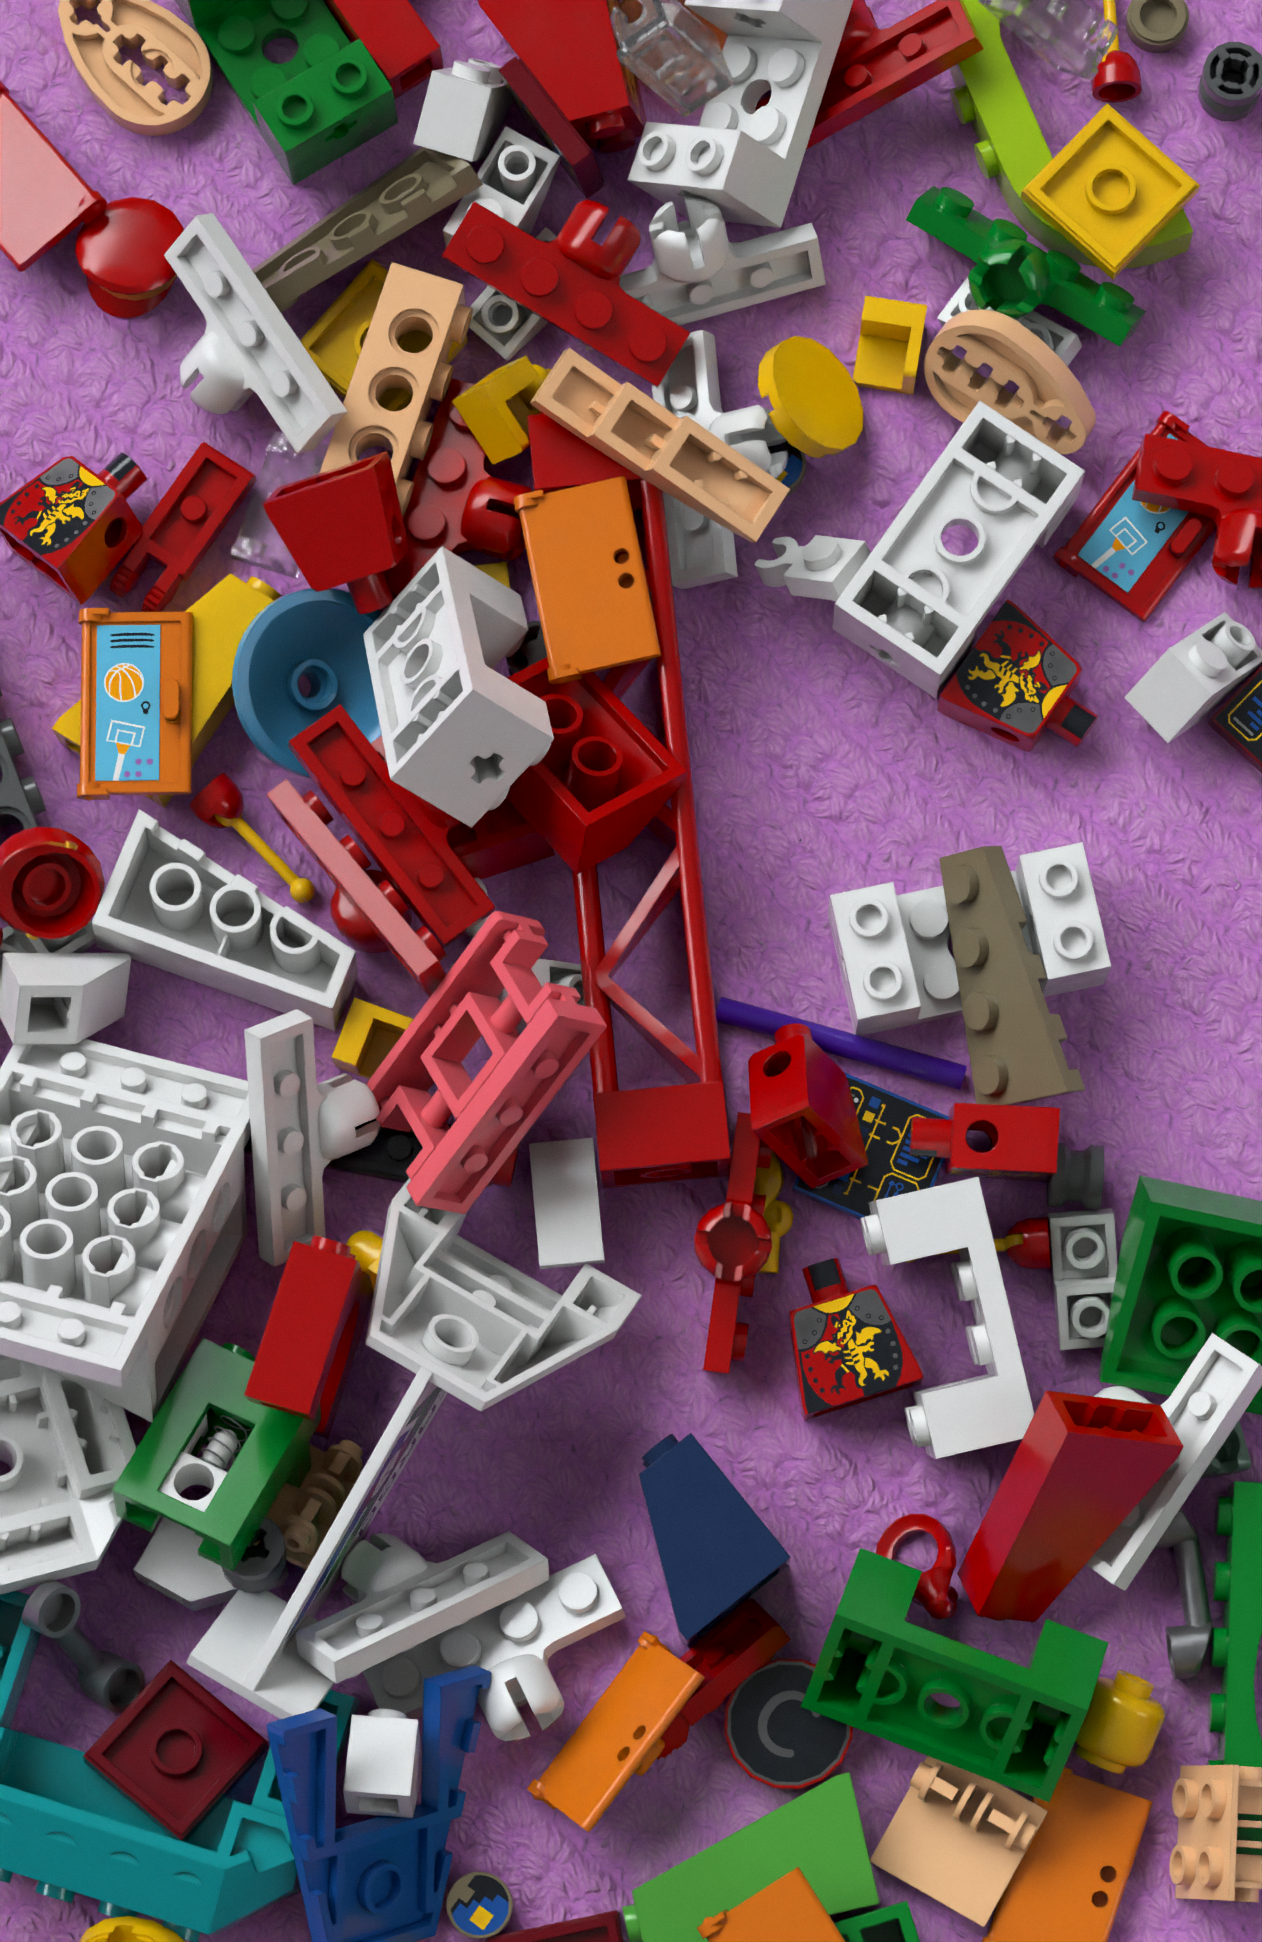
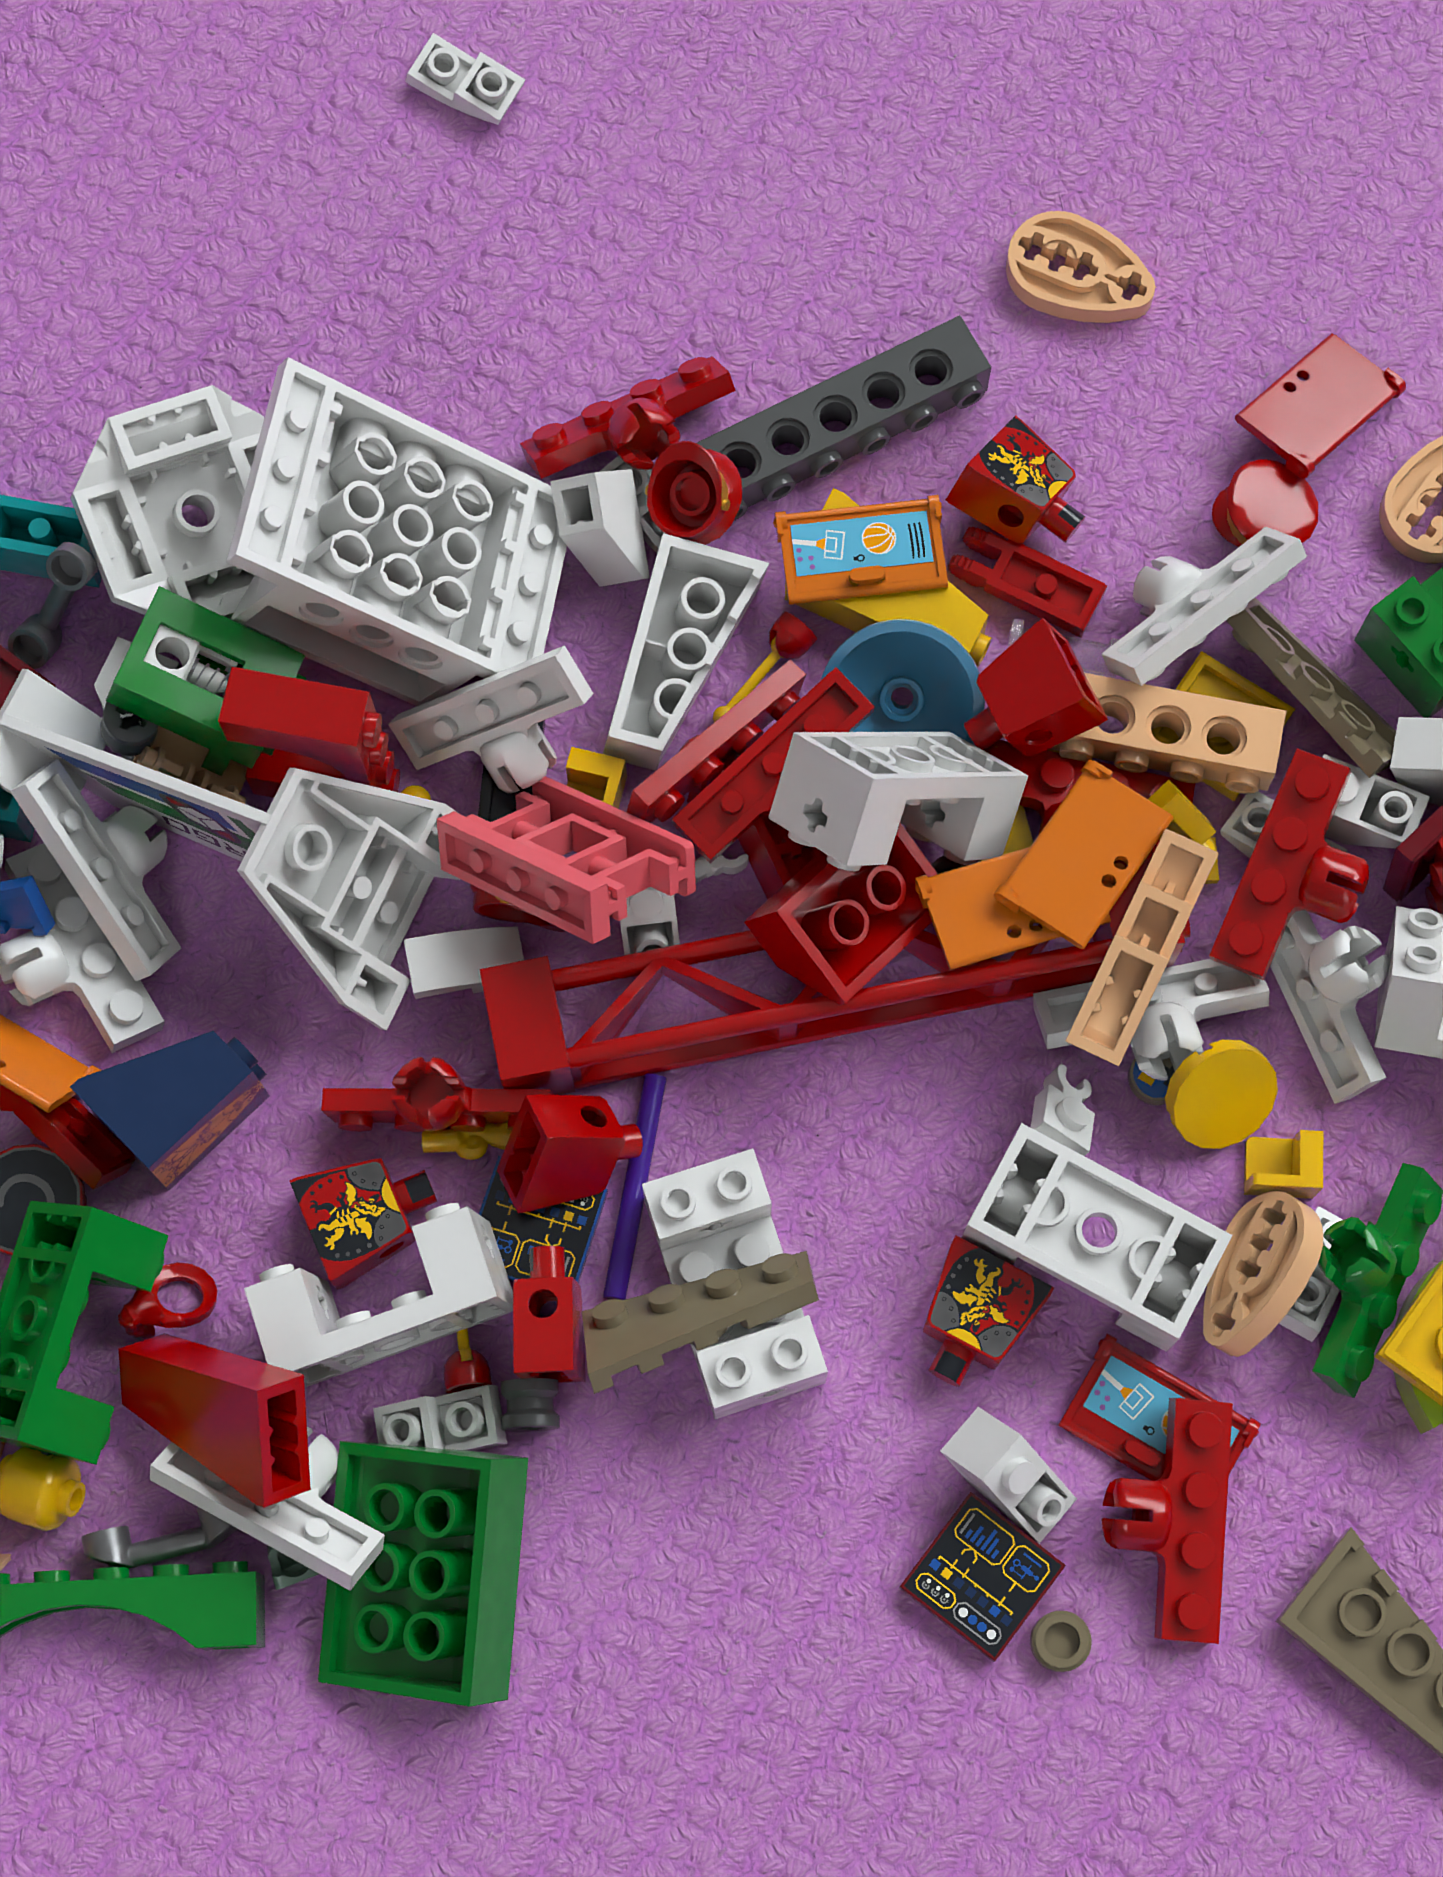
camera: 80 degrees right, 5 degrees down
(551, 504) = (1070, 868): none -> orange door

